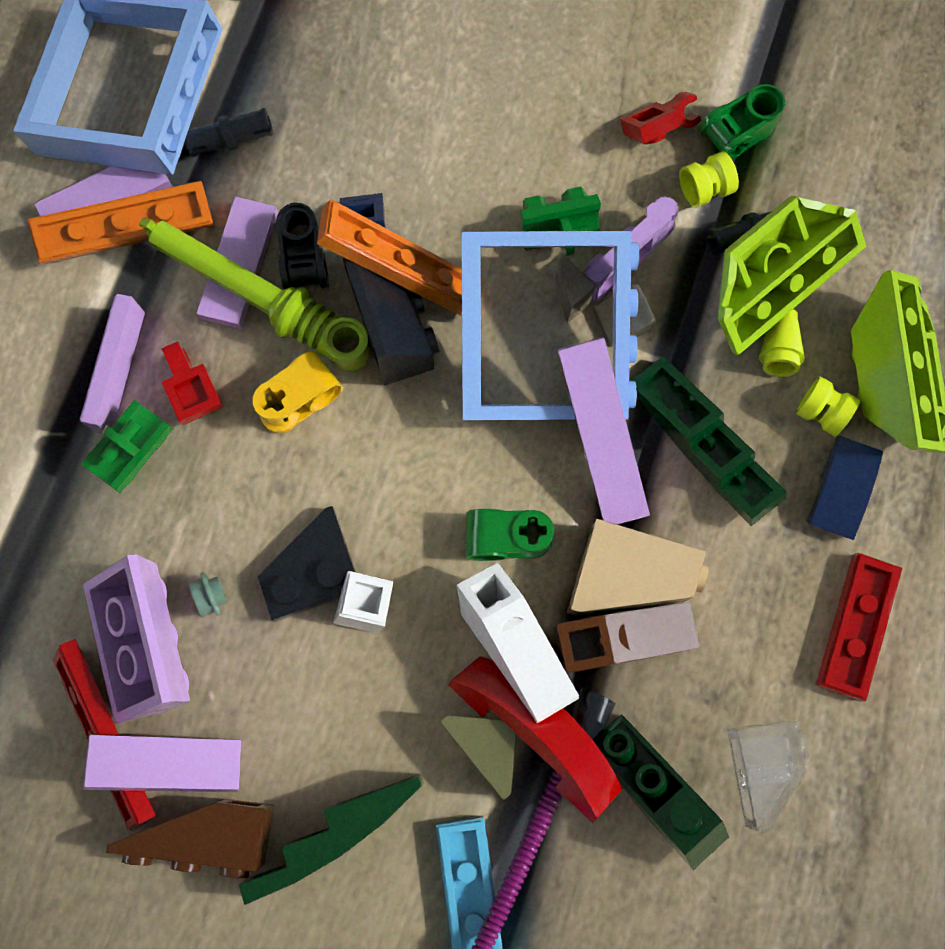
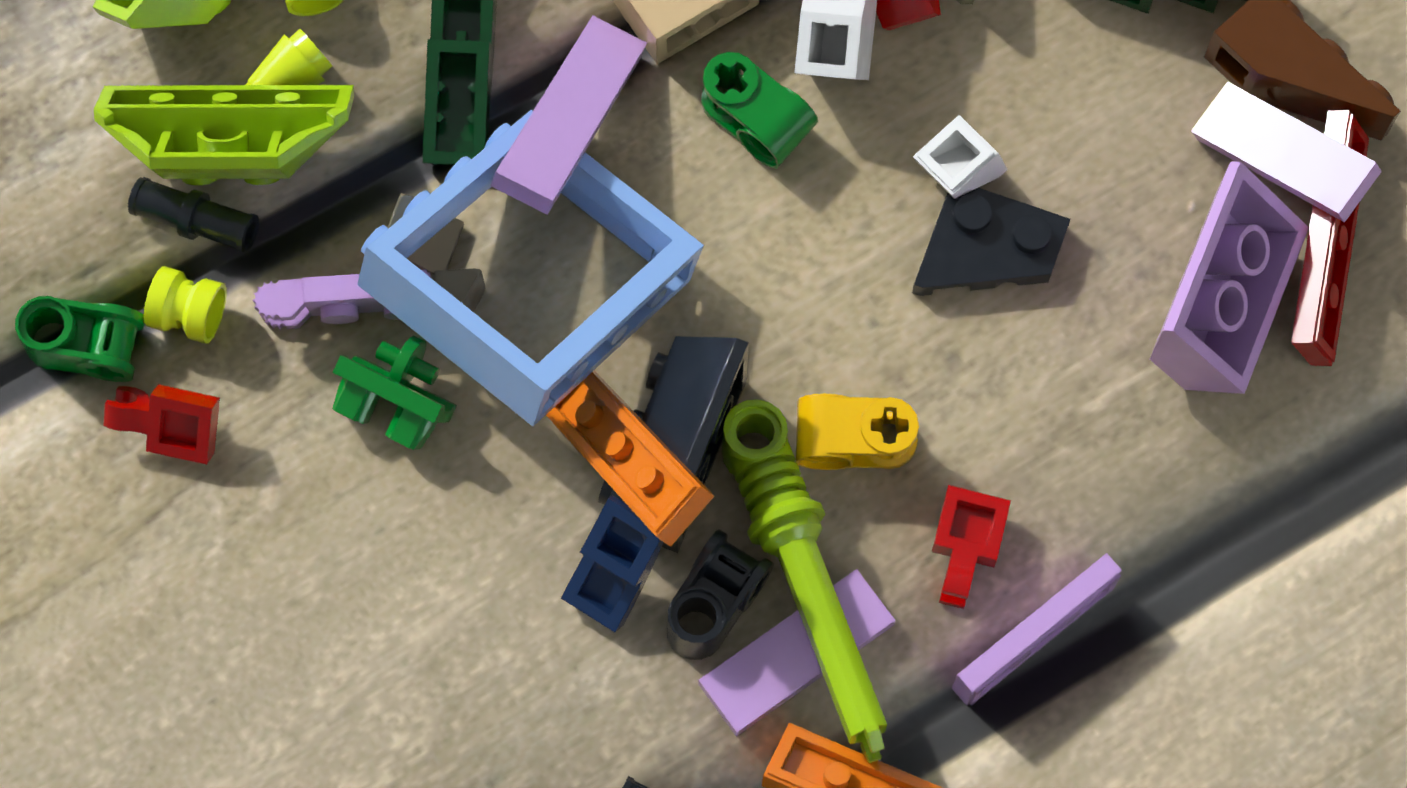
camera: 140 degrees left, 5 degrees down
(127, 446) = (1088, 513): green hips -> none
(207, 594) = (1118, 297): sand green plate -> none

